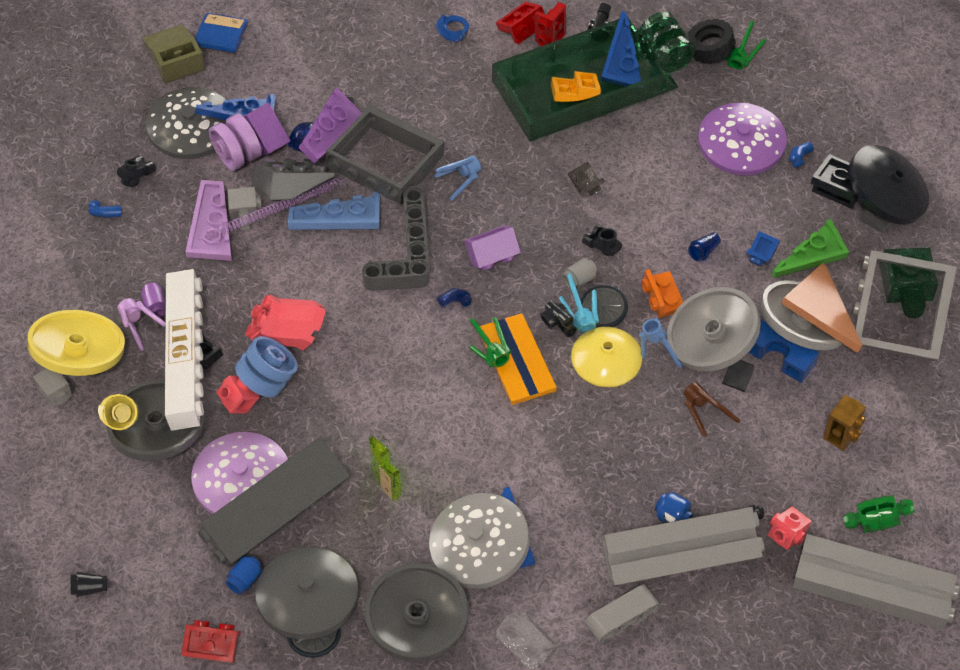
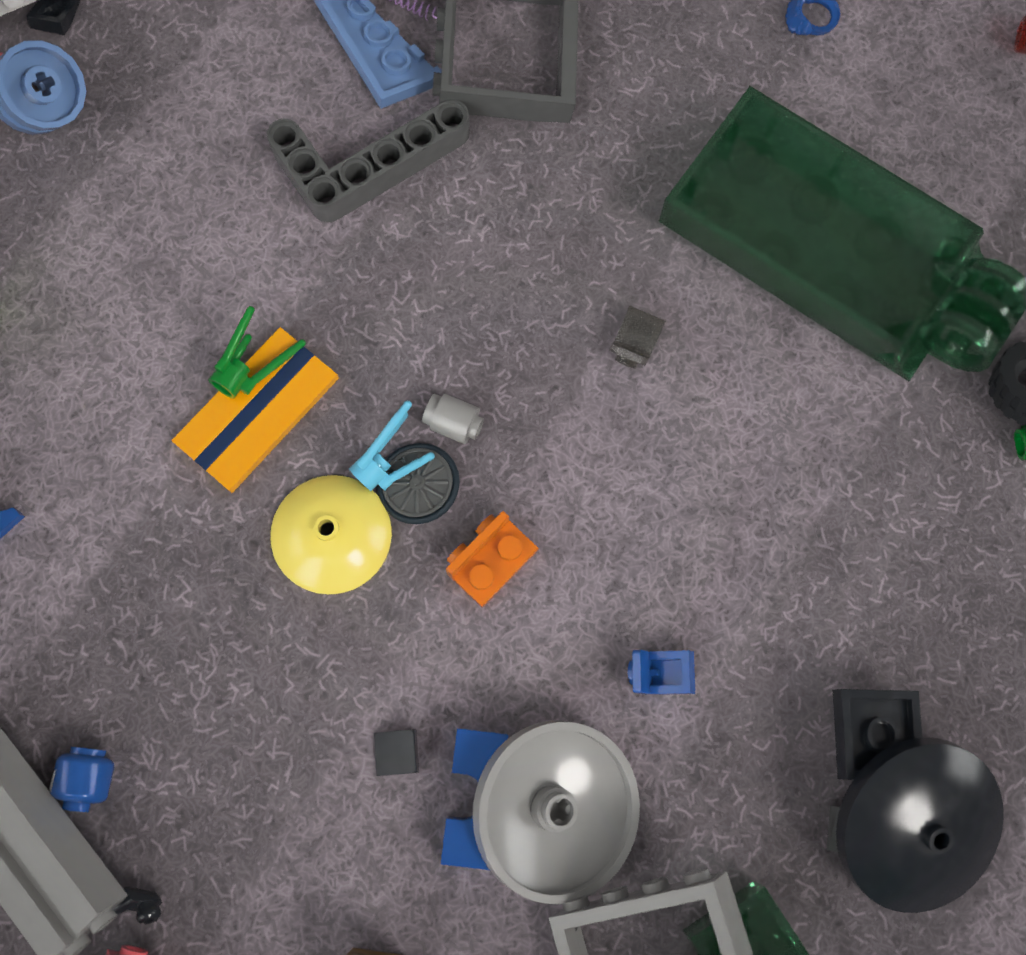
camera: 60 degrees right, 20 degrees up
(286, 321) = (132, 72): coral brick -> none
(456, 295) = (317, 263): clear blue arm -> none
(466, 167) = (559, 162): medium blue plant -> none
(492, 247) = (424, 270): medium lavender brick -> none
(520, 21) = (886, 96): red bracket -> none
(550, 26) = (897, 136): red bracket -> none
(559, 316) = (353, 426): black plate -> none
(581, 87) = (785, 227): light orange slope -> none
(602, 16) = (968, 199): black plate -> none
(603, 239) = (537, 413): black plate -> none
(621, 63) = (888, 269): blue wing -> none
(655, 333) = (373, 588): medium blue plant -> none
(698, 397) = (317, 708): reddish brown plant -> none
(704, 246) = (617, 577): clear blue cone -> none
(714, 329) = (447, 676): light grey dish -> none
(742, 139) = (876, 531): medium lavender dish -> none
(798, 152) = (903, 633): blue arm -> none
(820, 248) = (724, 765): bright green wing -> none
(822, 306) = (584, 830): nougat tile -> none

